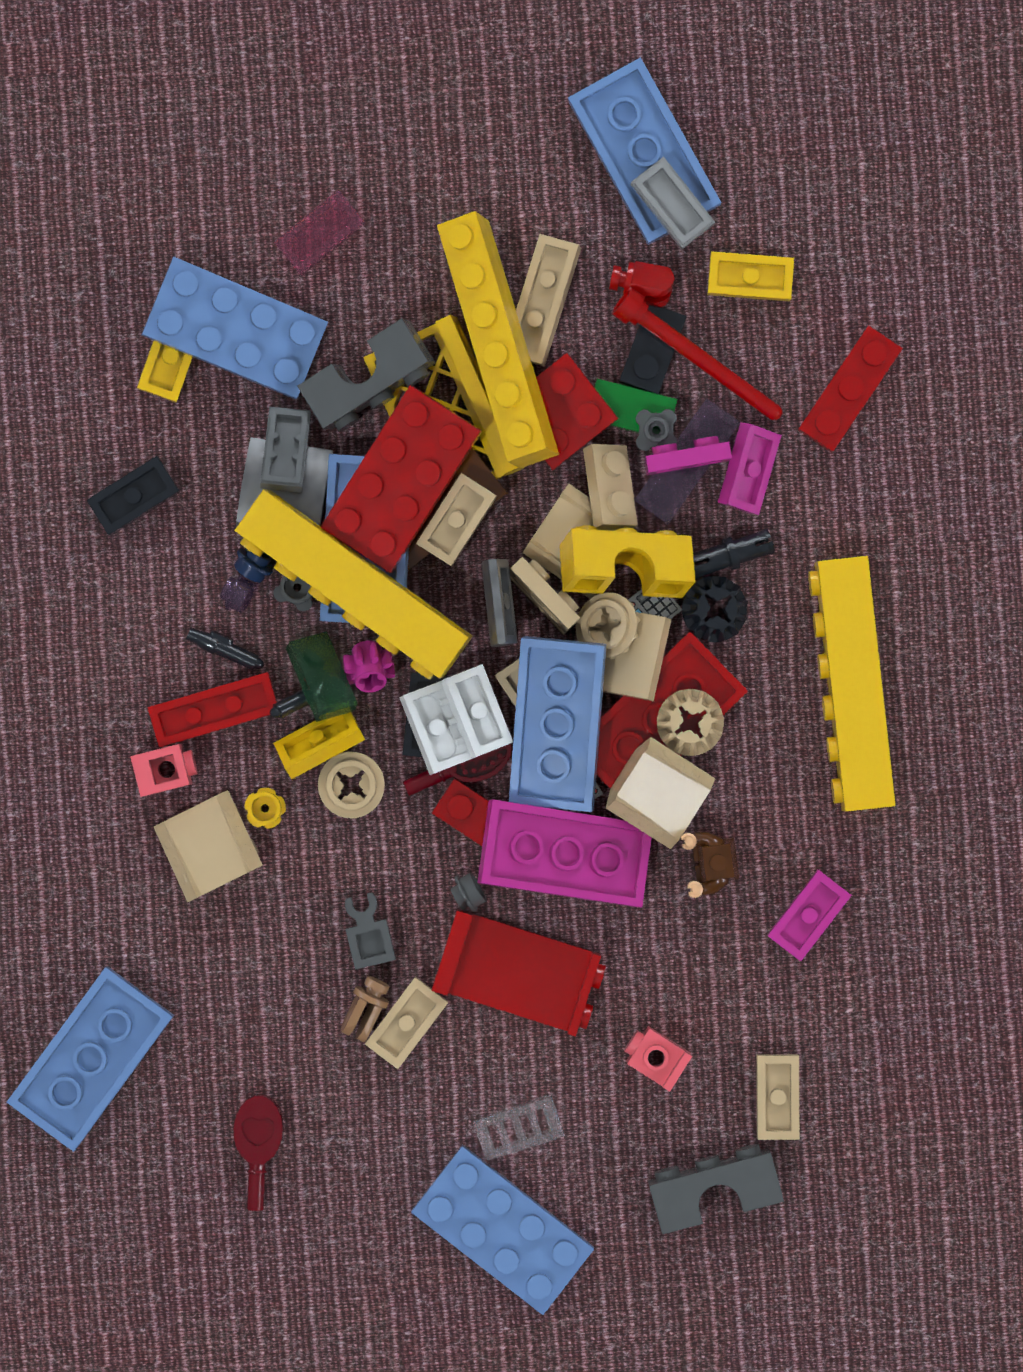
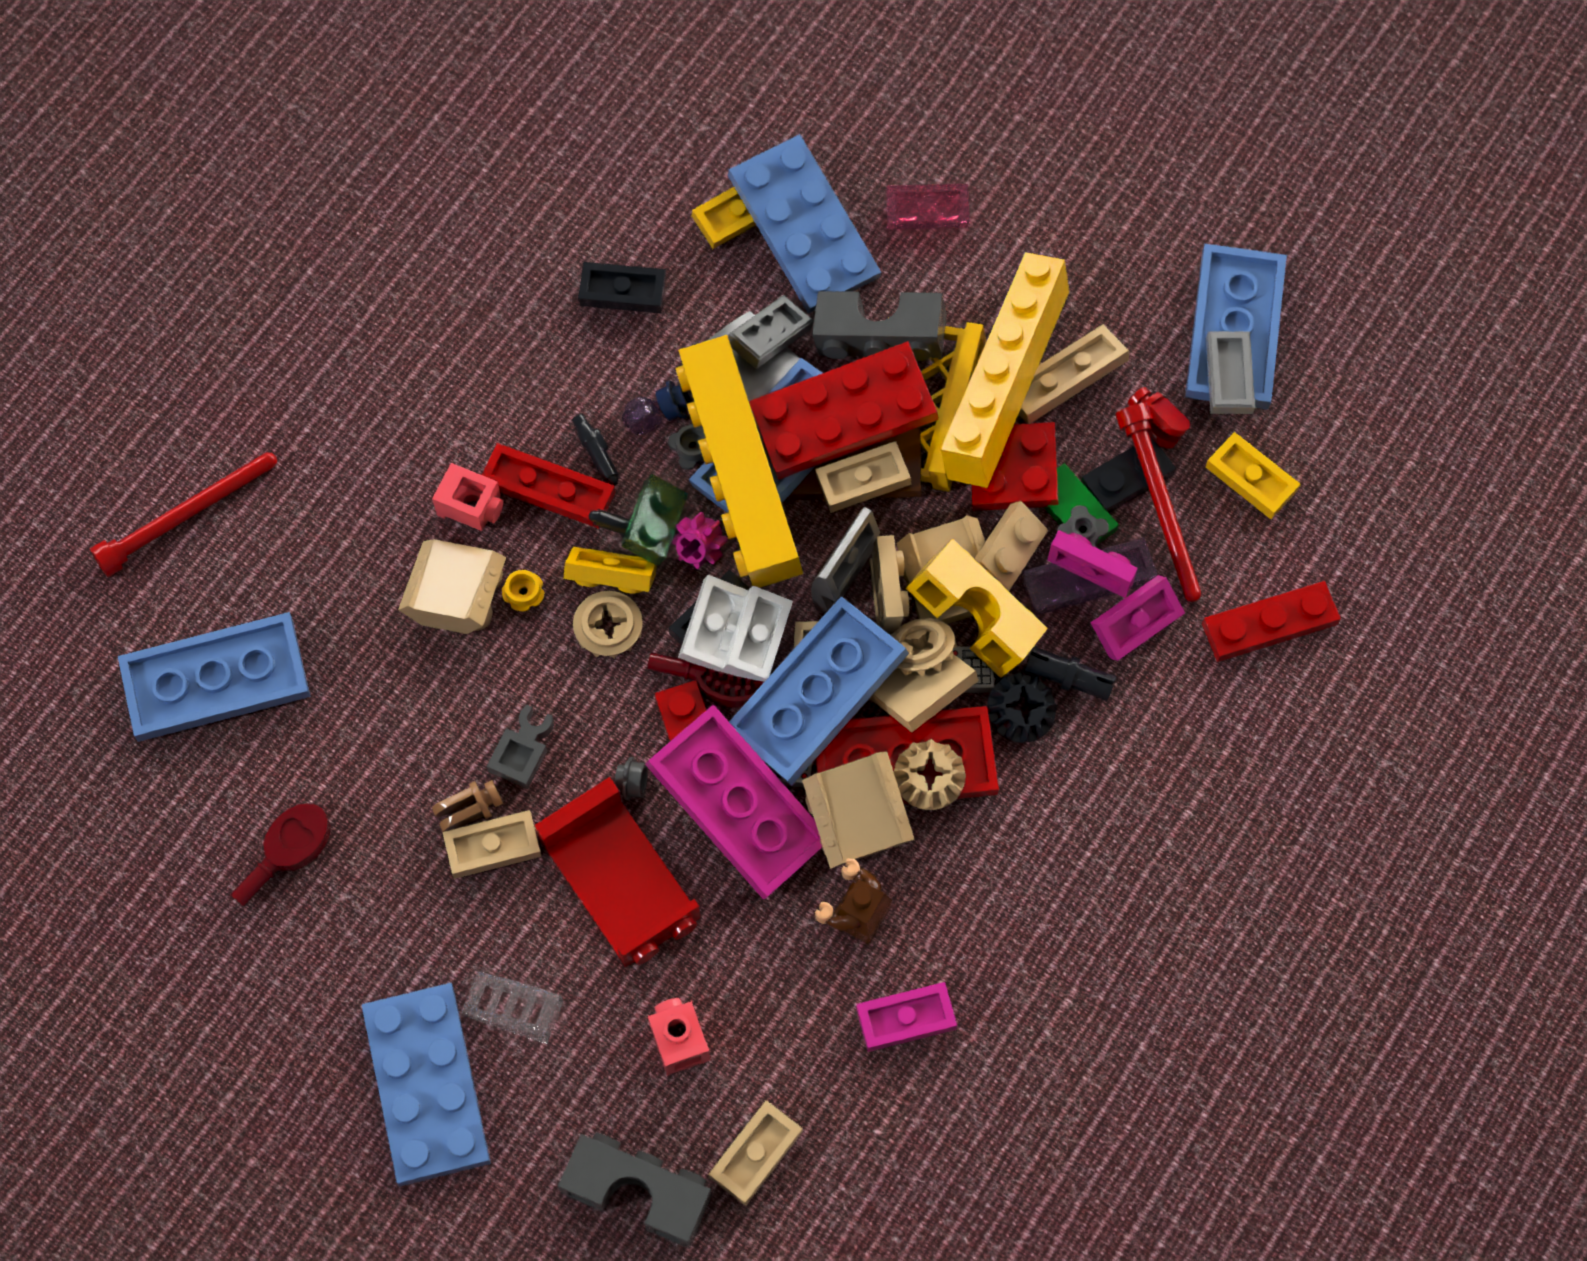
camera: 30 degrees right, 20 degrees down
(853, 683) = (1094, 852): yellow brick -> none

